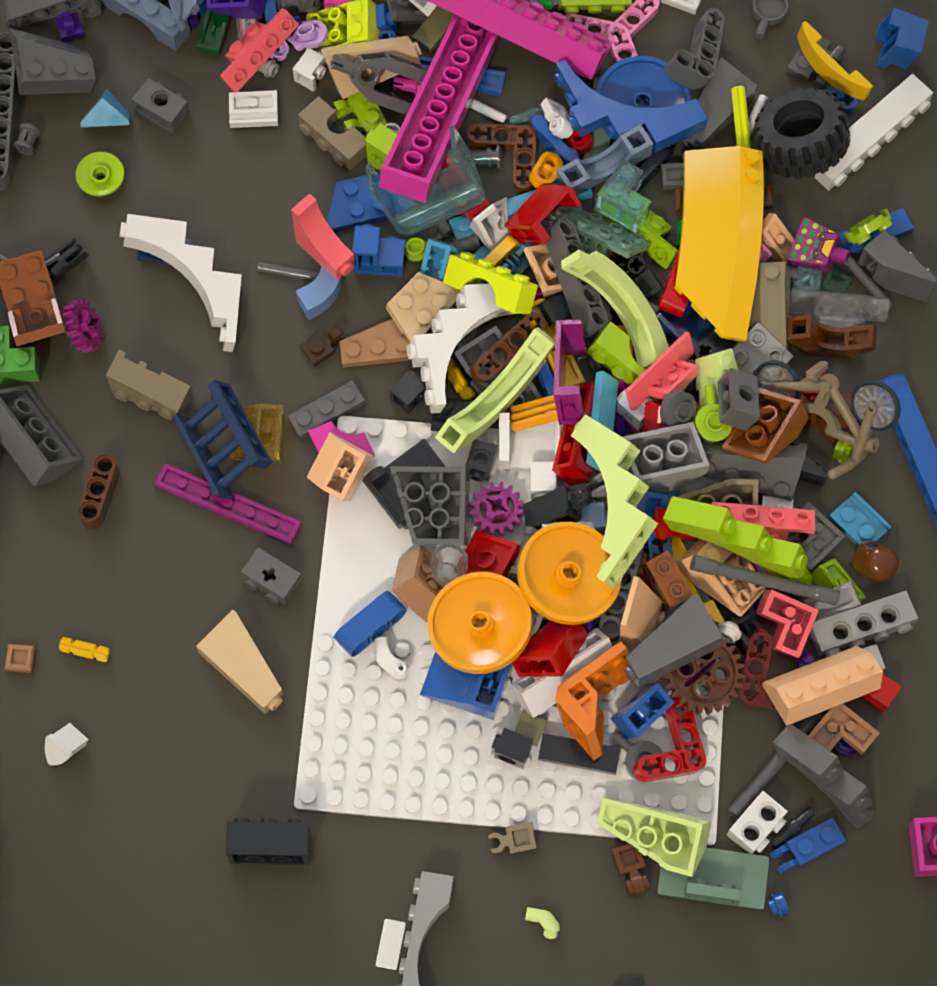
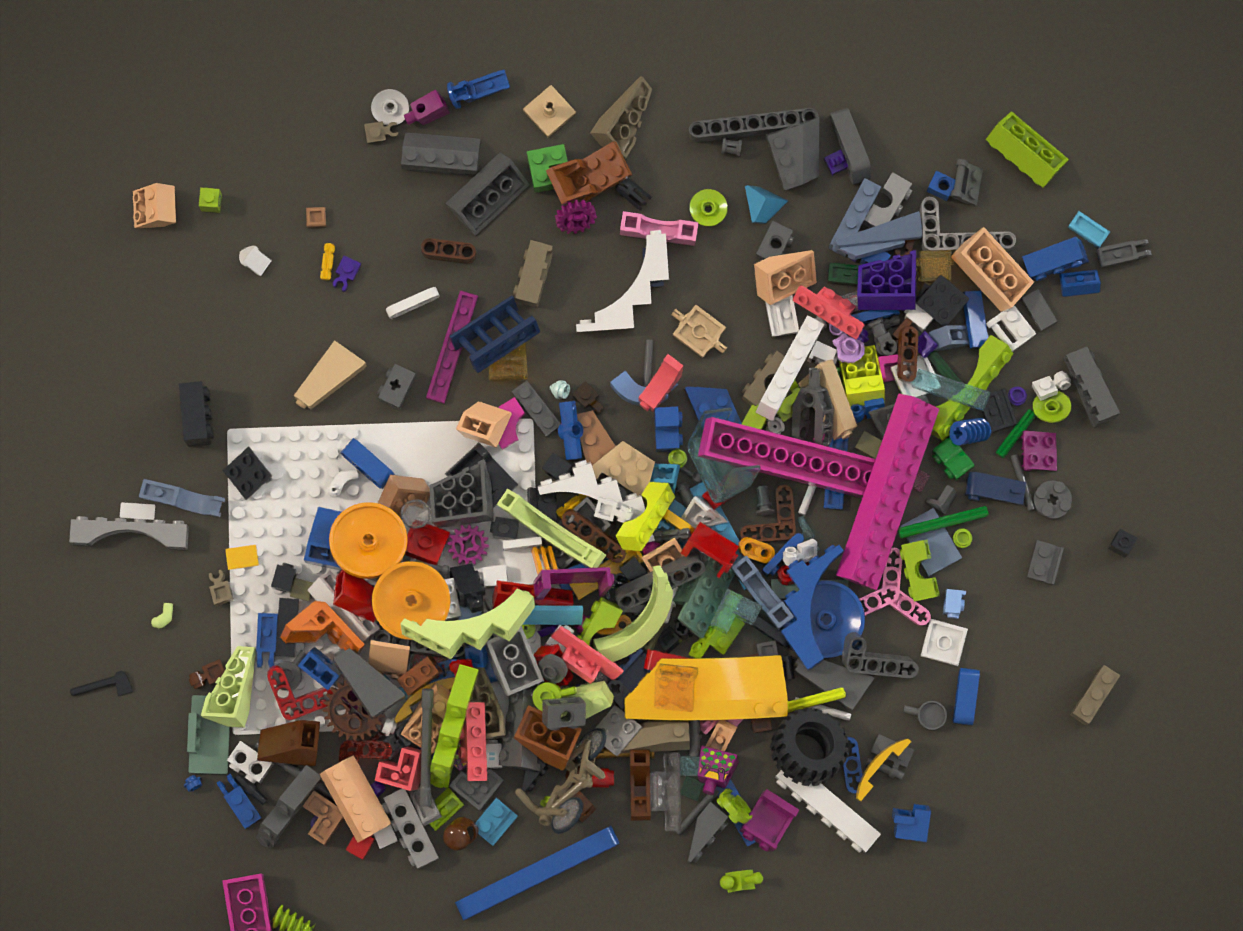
camera: 80 degrees right, 10 degrees up
(101, 625) = (347, 270): none -> dark purple plate
(110, 252) = (676, 231): none -> bright pink arch
(160, 544) = (412, 302): none -> white beam
(204, 95) = (783, 274): none -> light nougat slope
(257, 204) = (699, 331): none -> tan plate
(305, 377) = (560, 389): none -> light aqua plate
(356, 107) = (789, 368): none -> white arch
(361, 782) = (247, 473): none -> black hinge
(362, 368) = (570, 430): none -> blue piece
(382, 878) = (181, 498): none -> sand blue piece
(474, 805) = (241, 557): none -> yellow sticker
(476, 322) = (608, 508): none -> white plate
(517, 254) = (678, 534): none -> dark grey axle
(591, 781) = (266, 637): none -> blue hinge
(717, 265) = (674, 687): none -> clear yellow bracket
(739, 762) = (290, 743): none -> reddish brown slope
(879, 191) = (769, 820): none -> magenta panel

